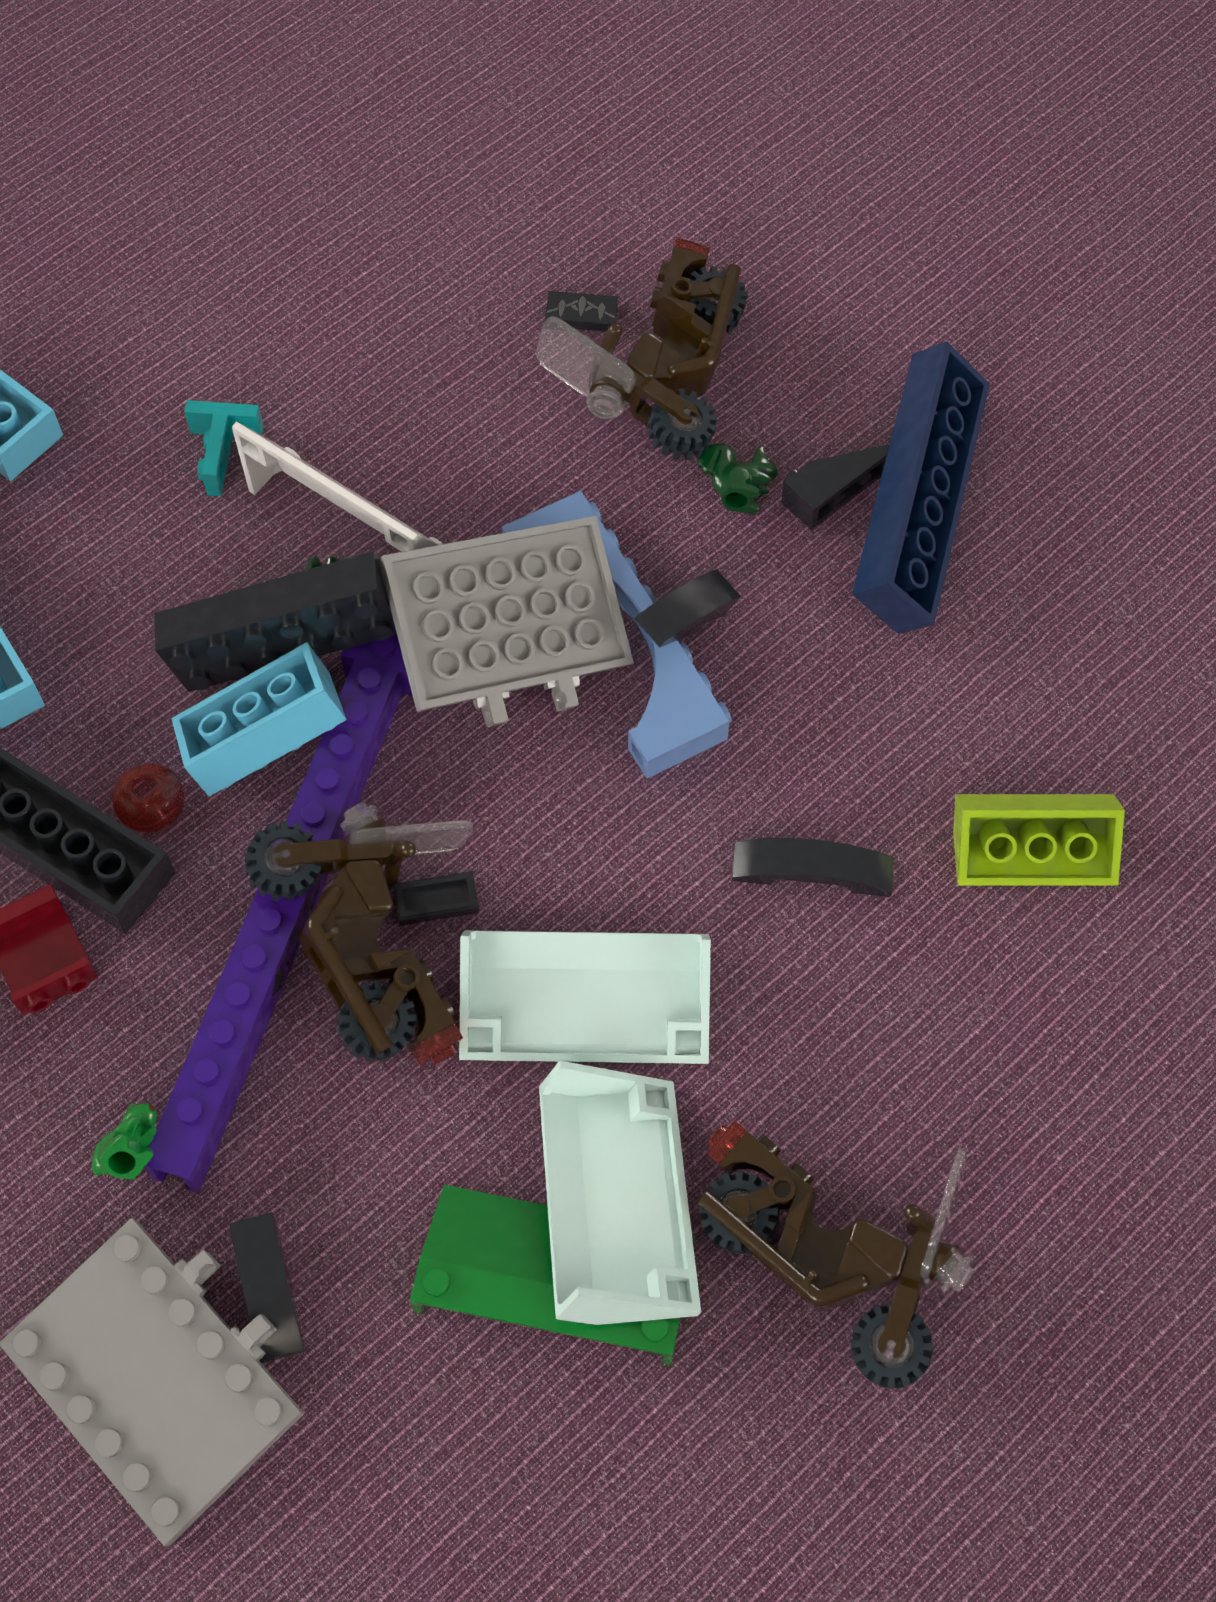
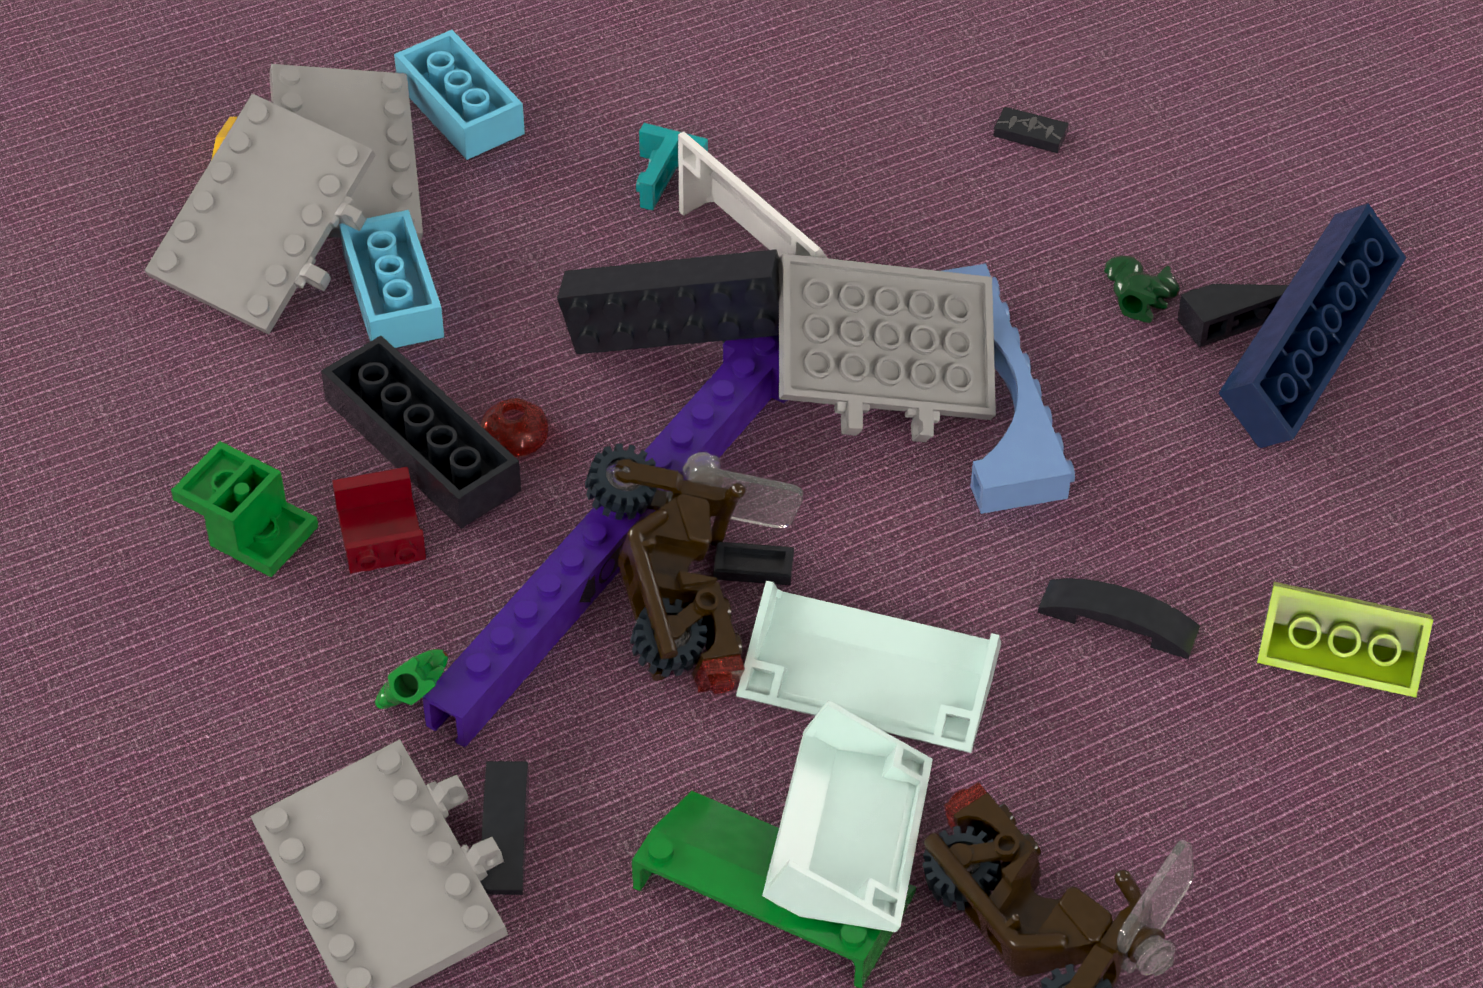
camera: 15 degrees right, 15 degrees down
(257, 719) = (633, 376): medium azure brick -> none
(688, 608) = (1059, 375): black slope -> none
(692, 319) = (1100, 185): piece -> none

